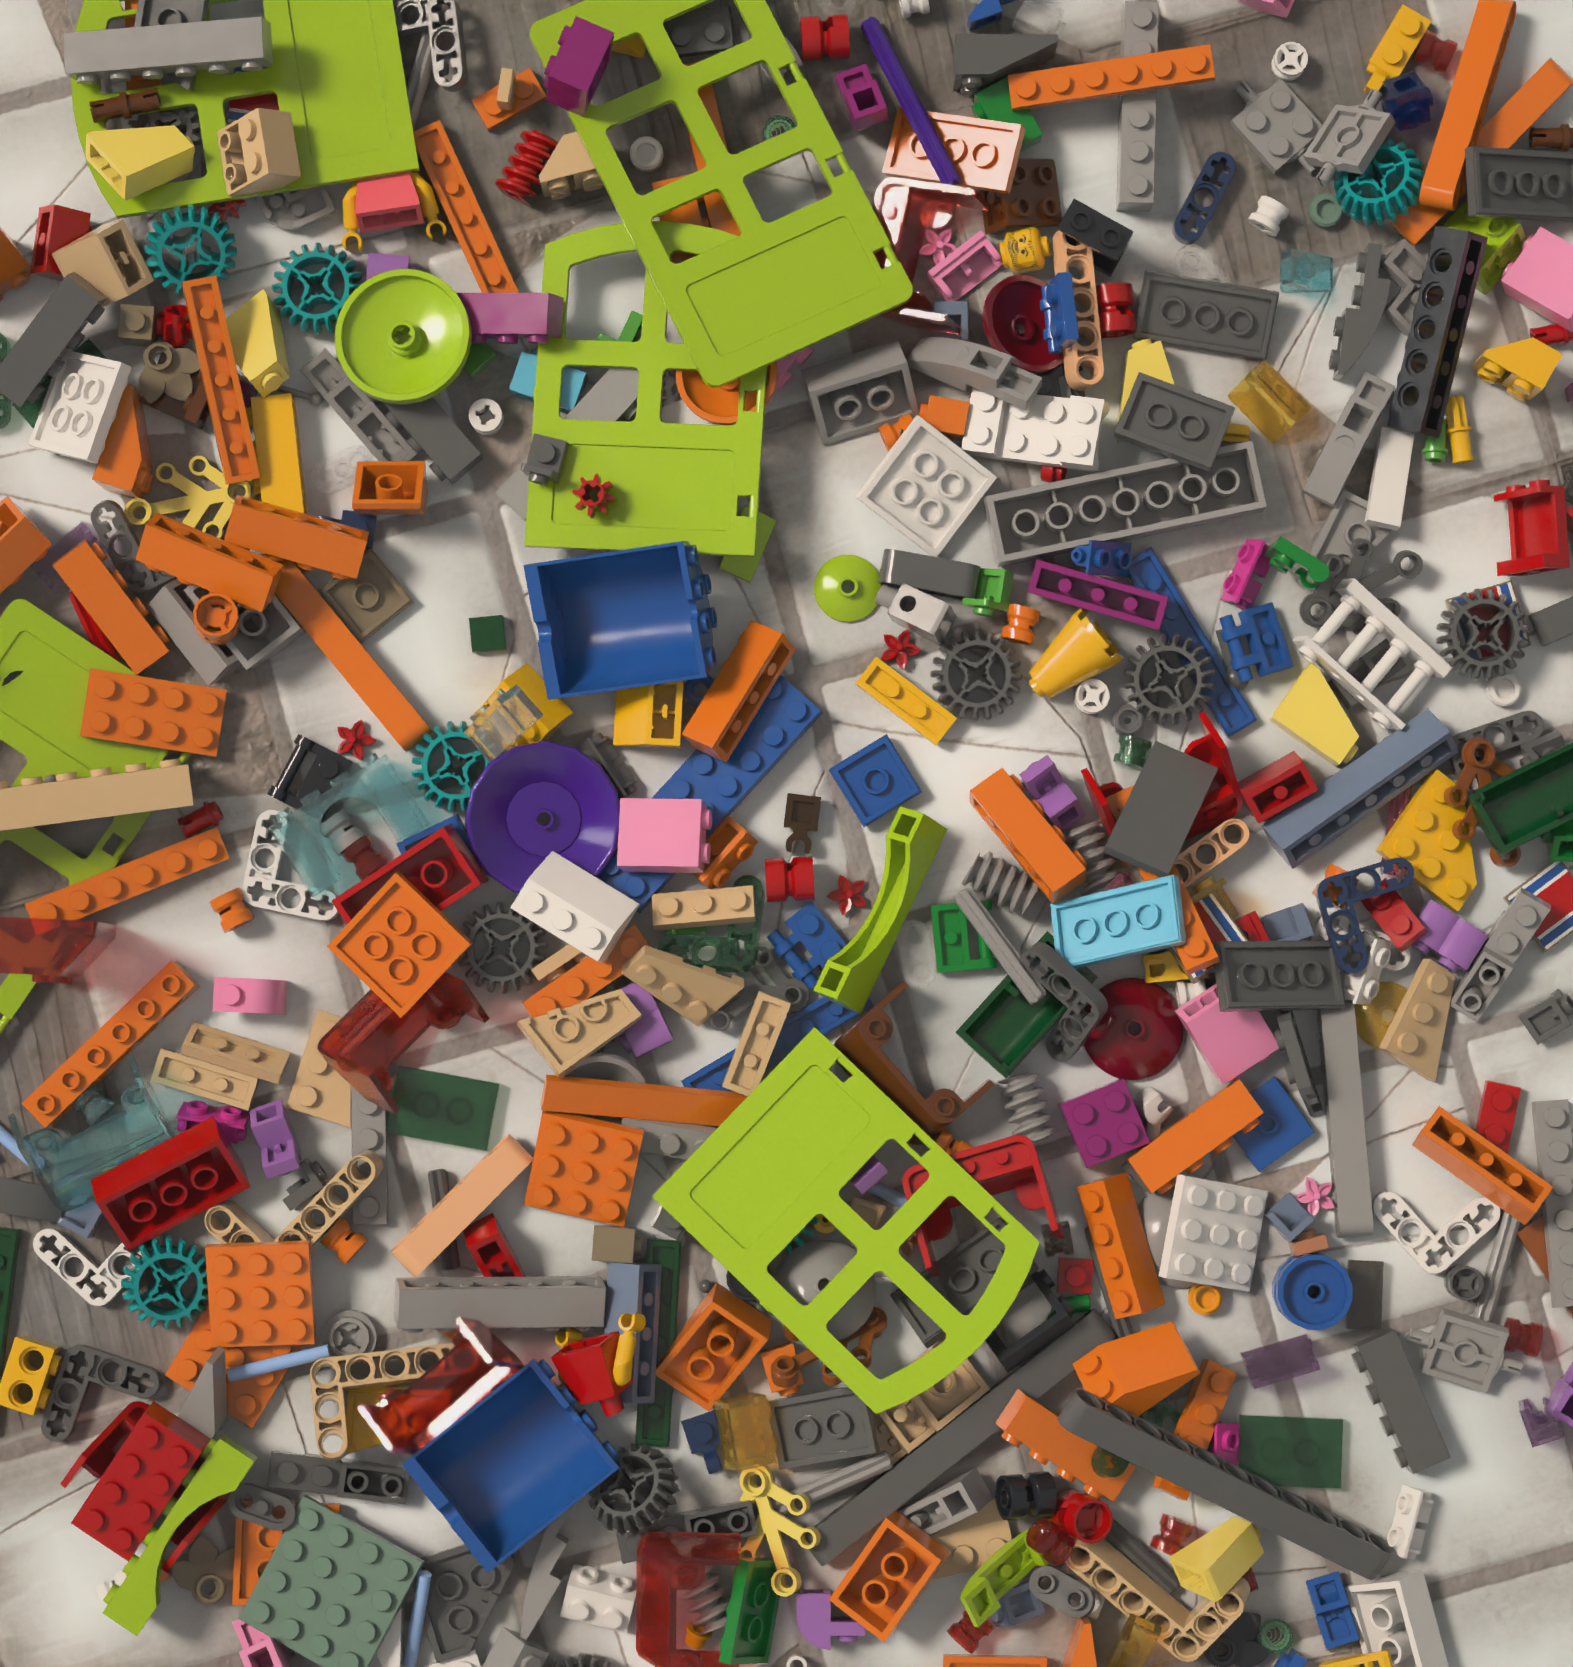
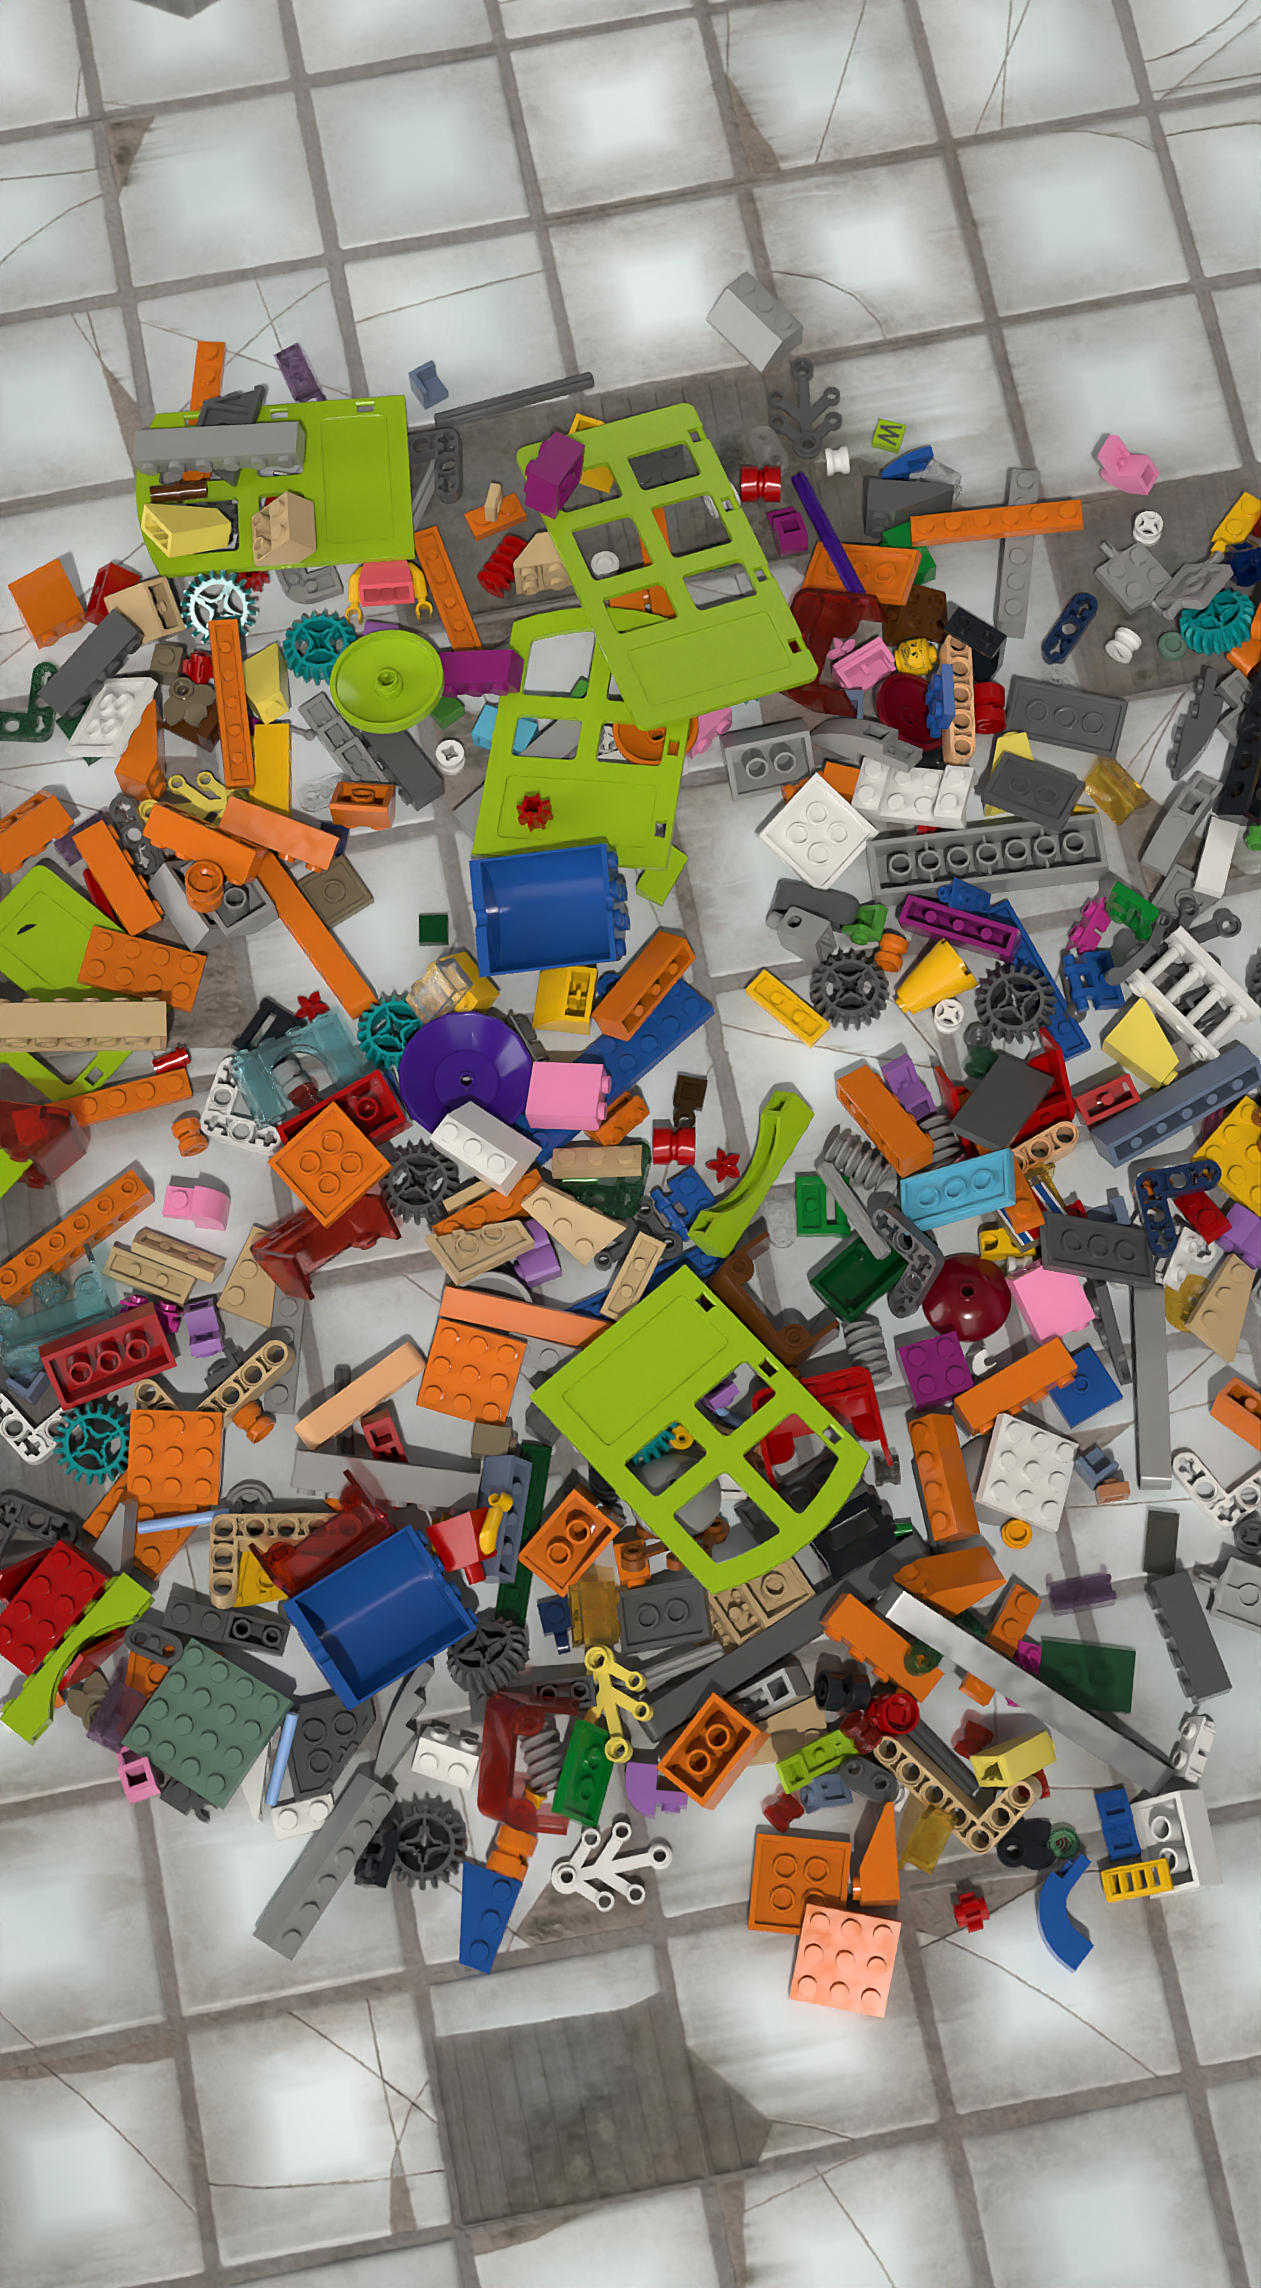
camera: 10 degrees right, 15 degrees down
(230, 1591) = (116, 1716): none -> hinge
(443, 1107) = (353, 1318): clear green tile -> none
(545, 459) = (496, 784): dark grey bracket -> none
(842, 605) = (739, 928): lime dish -> none
(875, 780) = (755, 1072): blue plate -> none
(899, 649) = (786, 967): red plant -> none
(1074, 1275) = (901, 1505): red plate -> none
(1305, 272) = (1151, 690): clear light blue slope -> none
(1305, 625) = (1135, 958): none -> dark grey plate
(1315, 1196) = (1122, 1453): bright pink plant -> none
(1321, 1309) = (1107, 1548): blue wheel -> none

